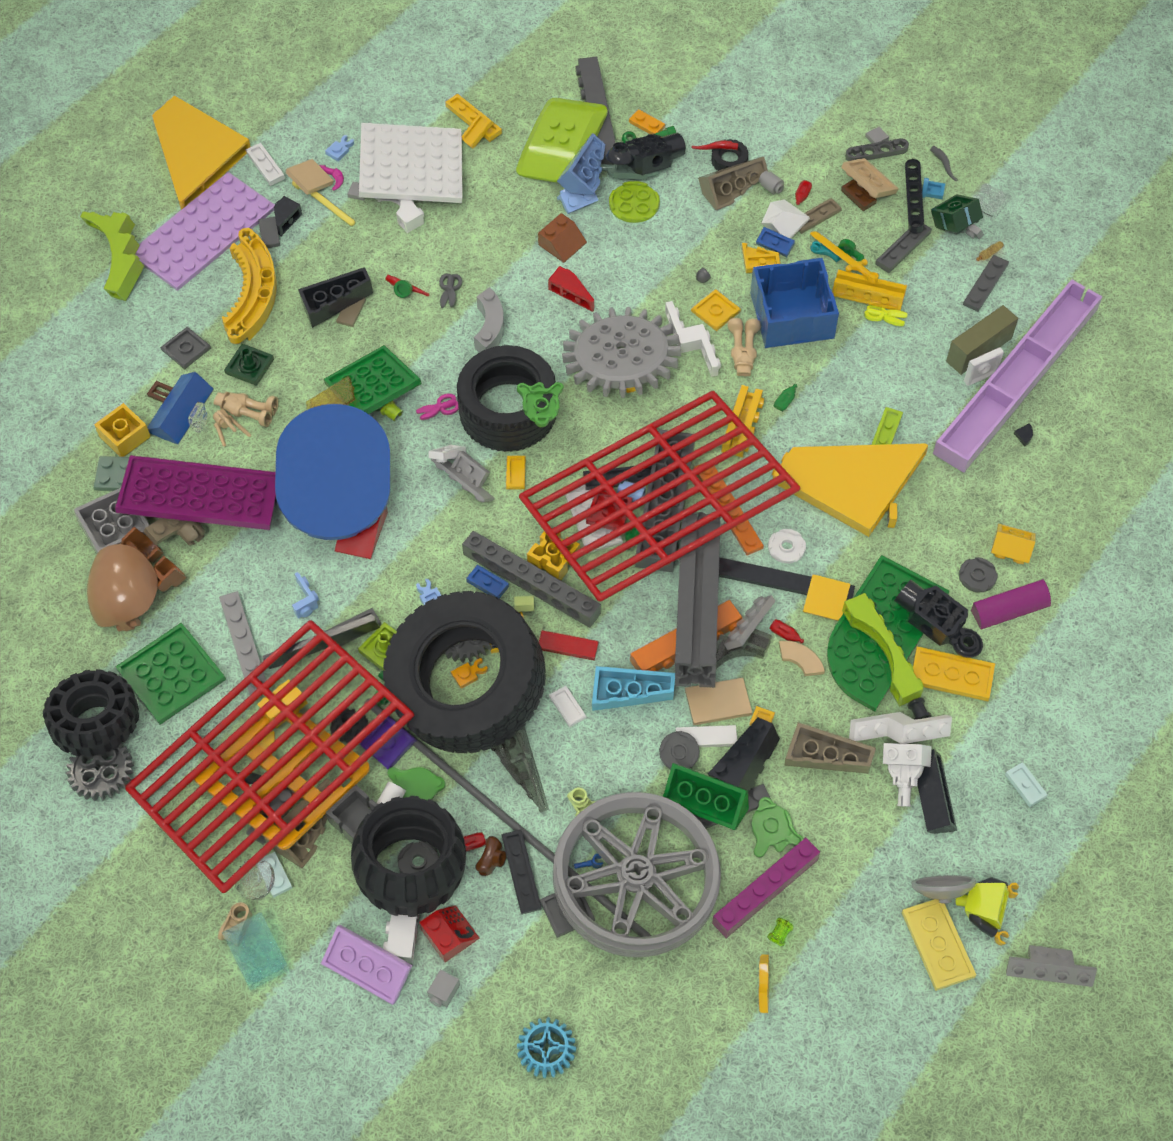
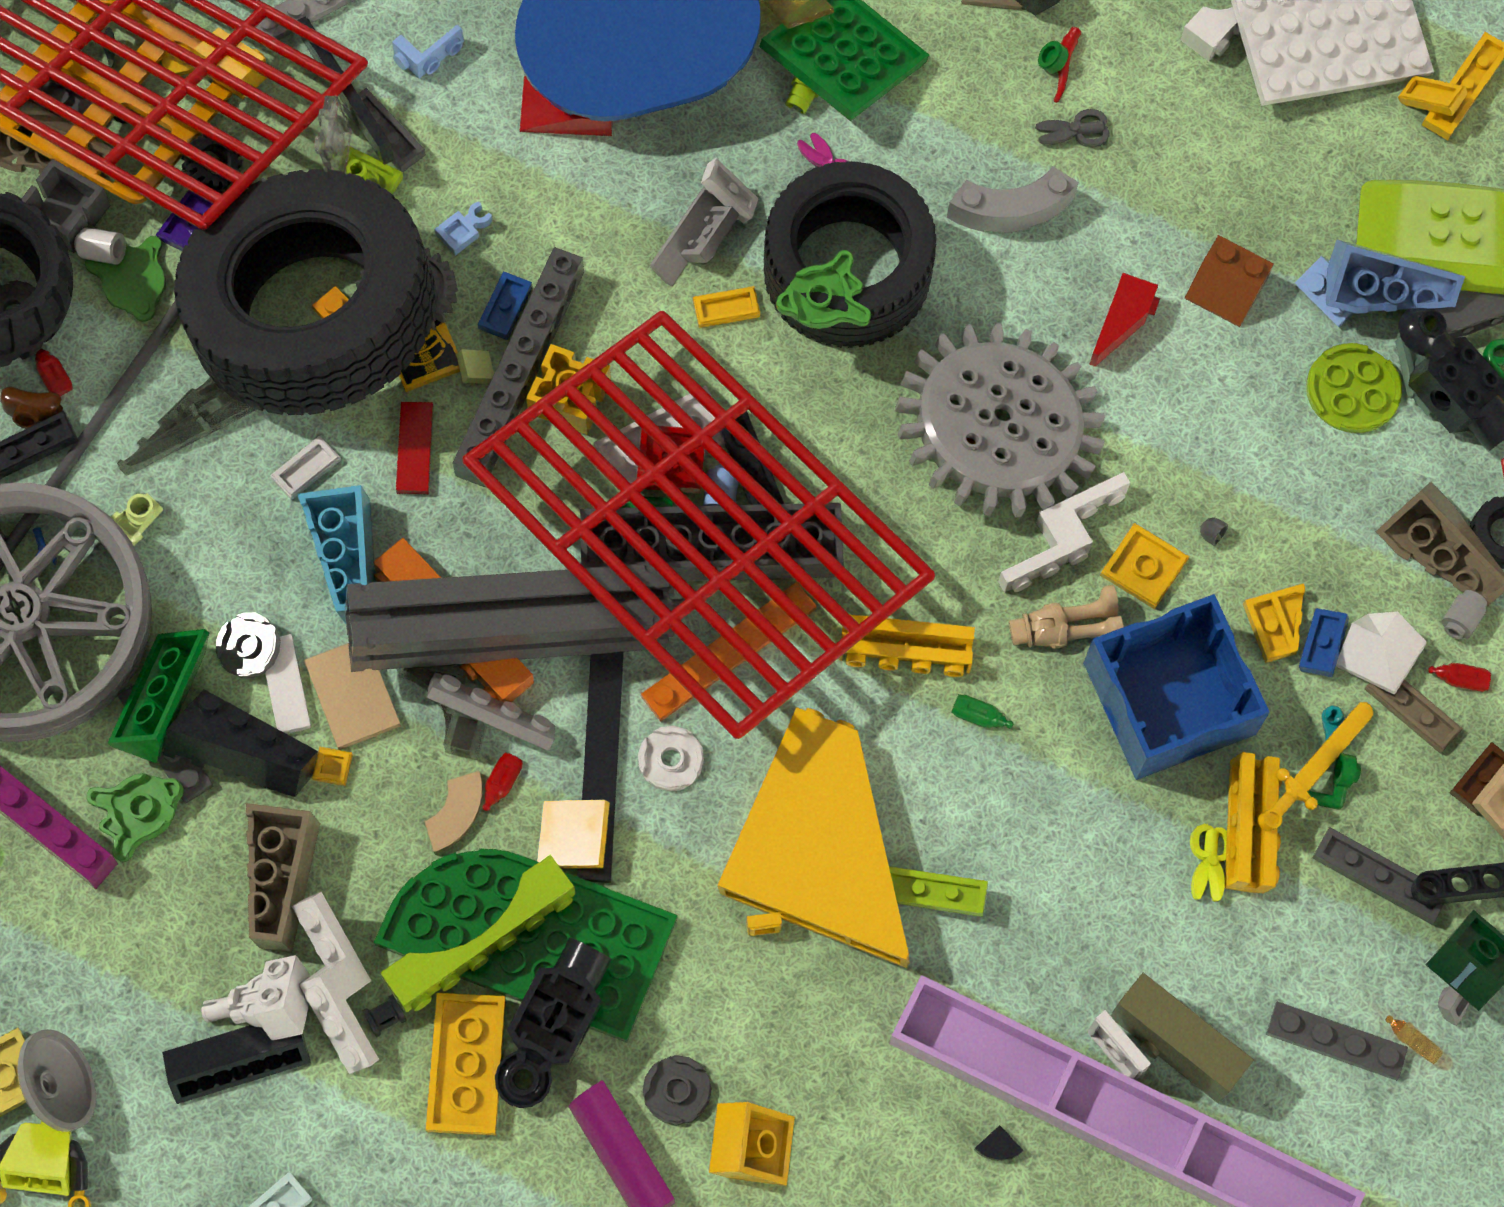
camera: 75 degrees right, 10 degrees up
(360, 646) = (334, 136): none -> clear plate

